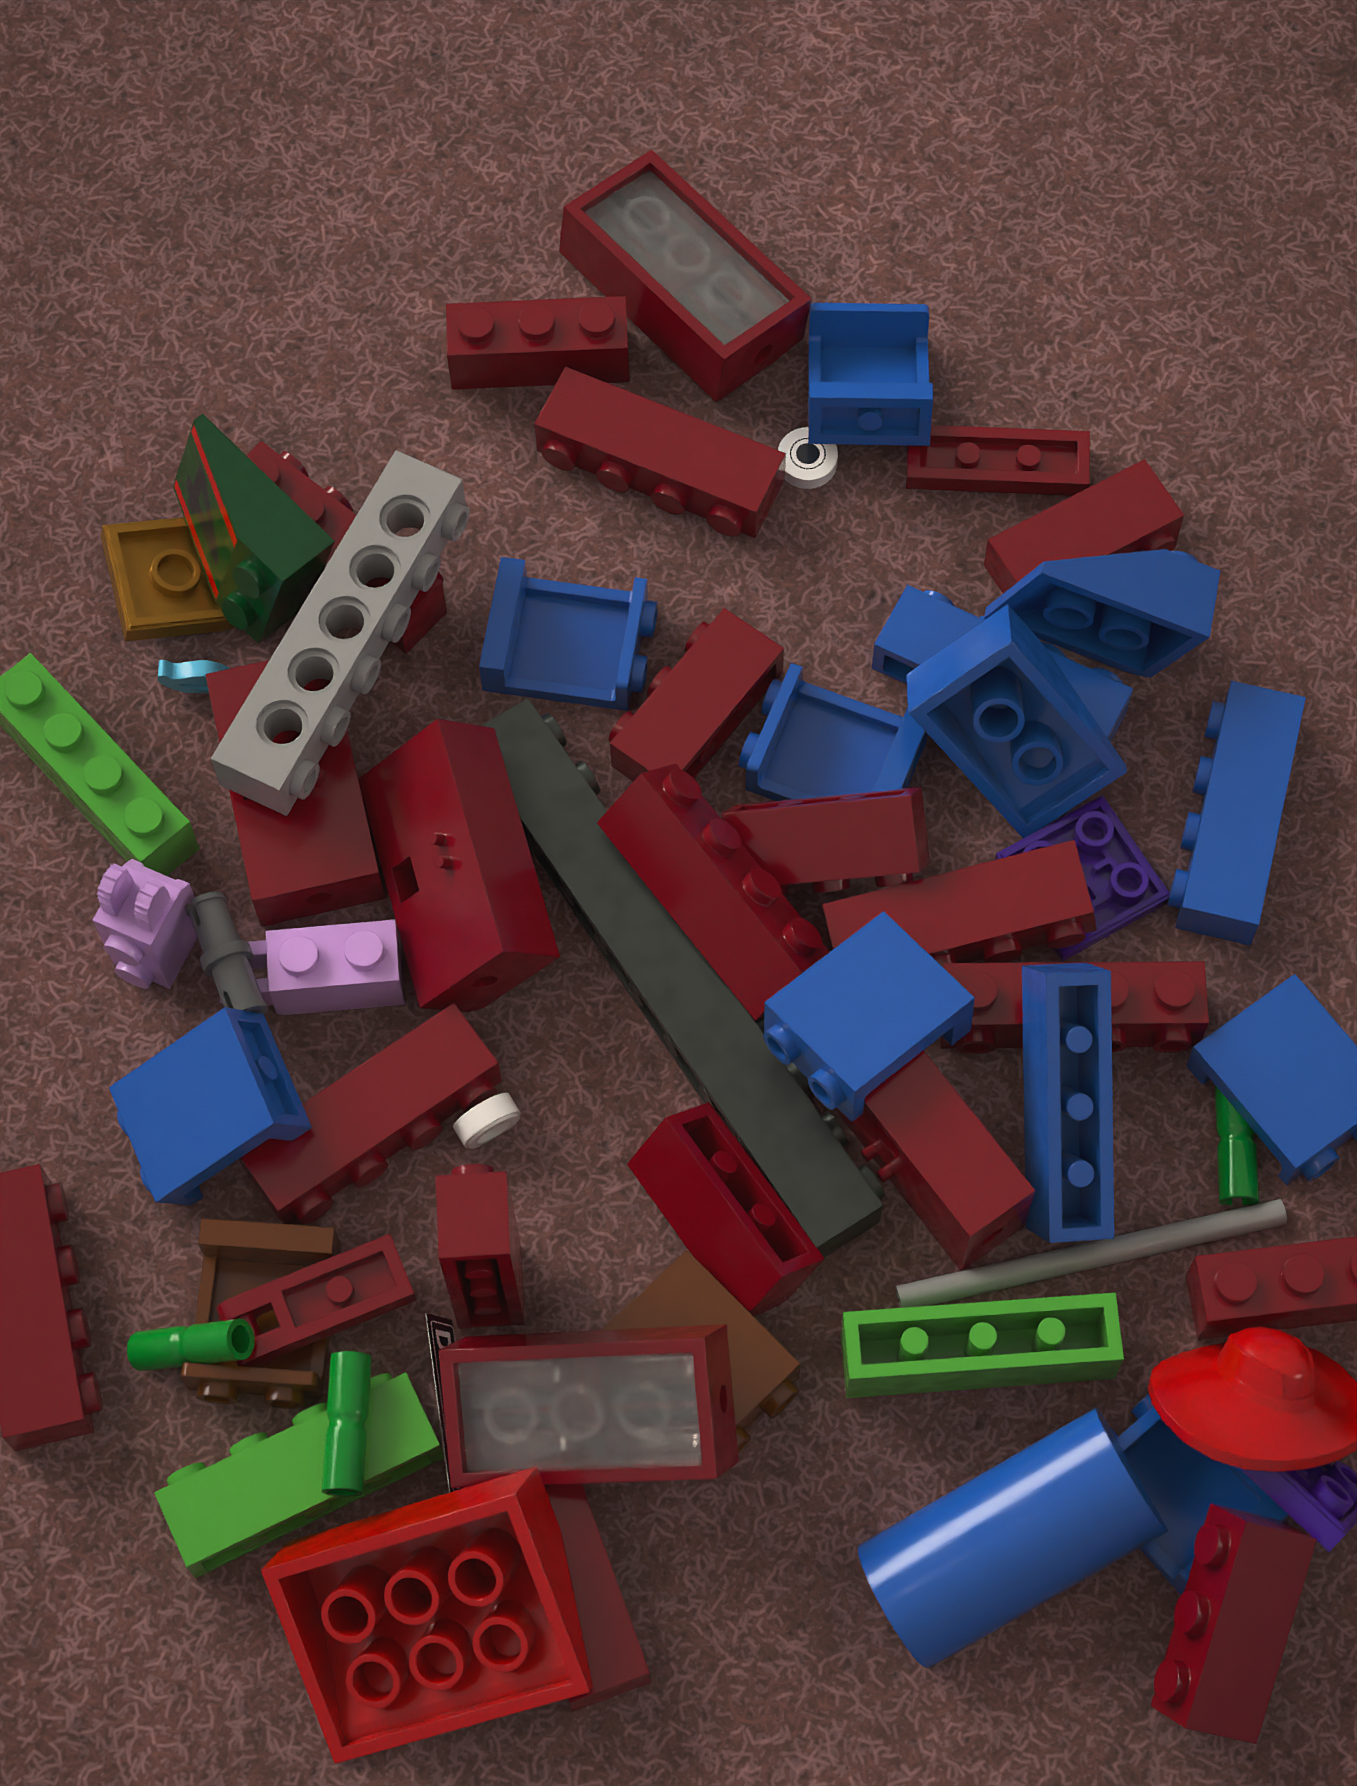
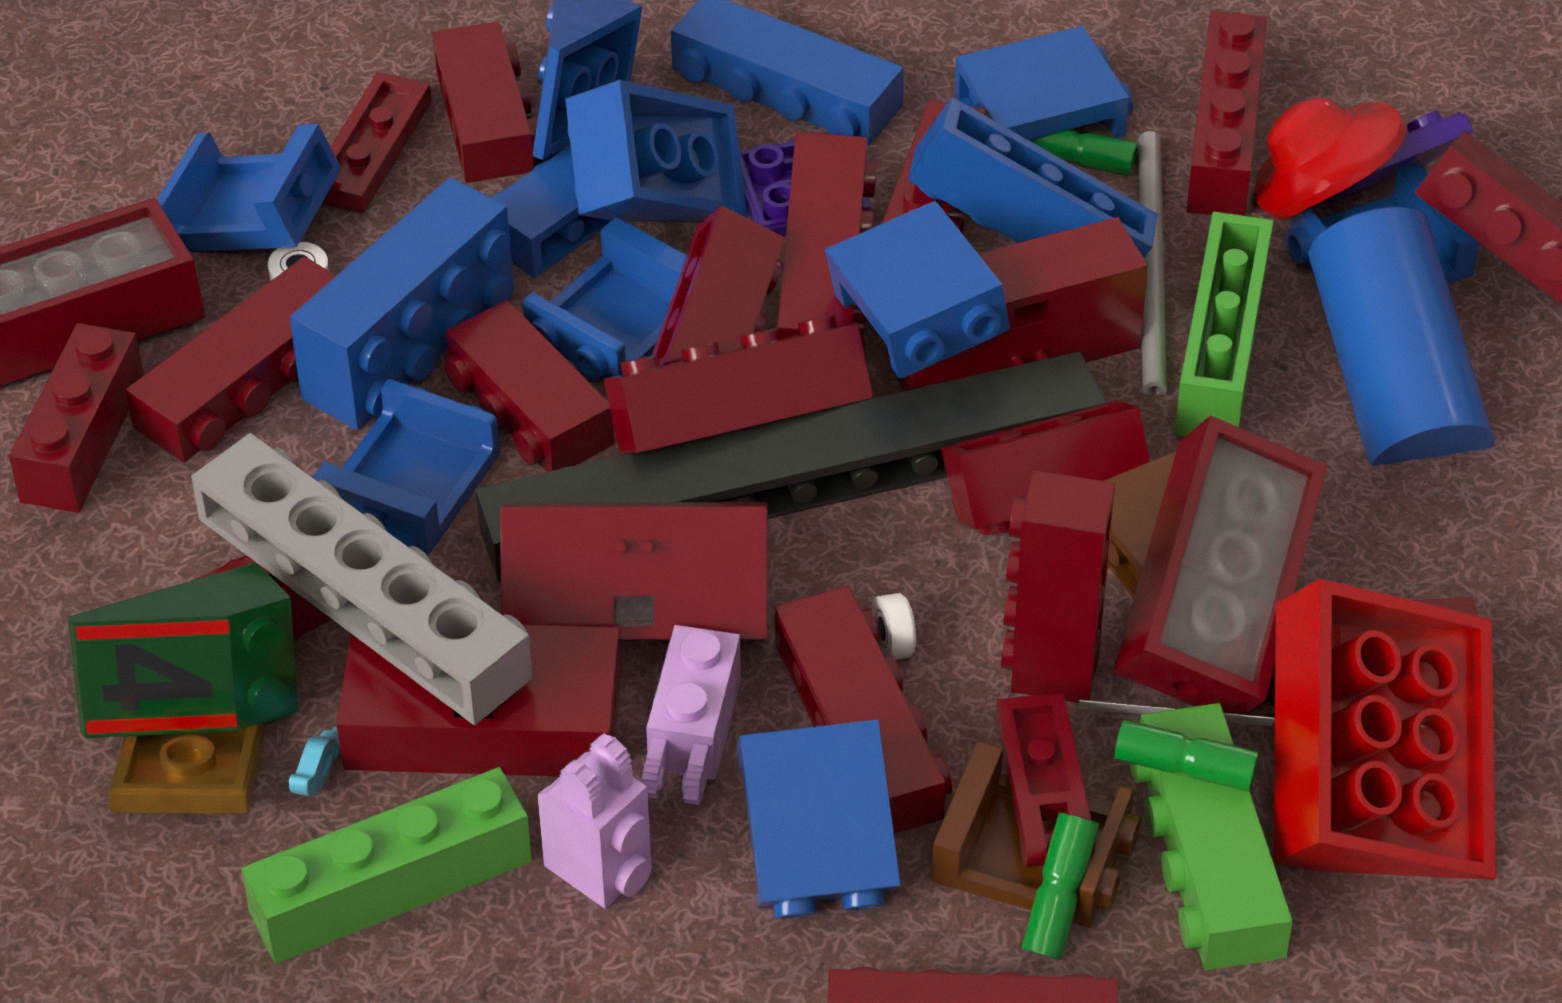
camera: 75 degrees left, 20 degrees down
(224, 954) = (683, 755): dark grey pin -> none
(748, 557) = (399, 299): none -> blue brick

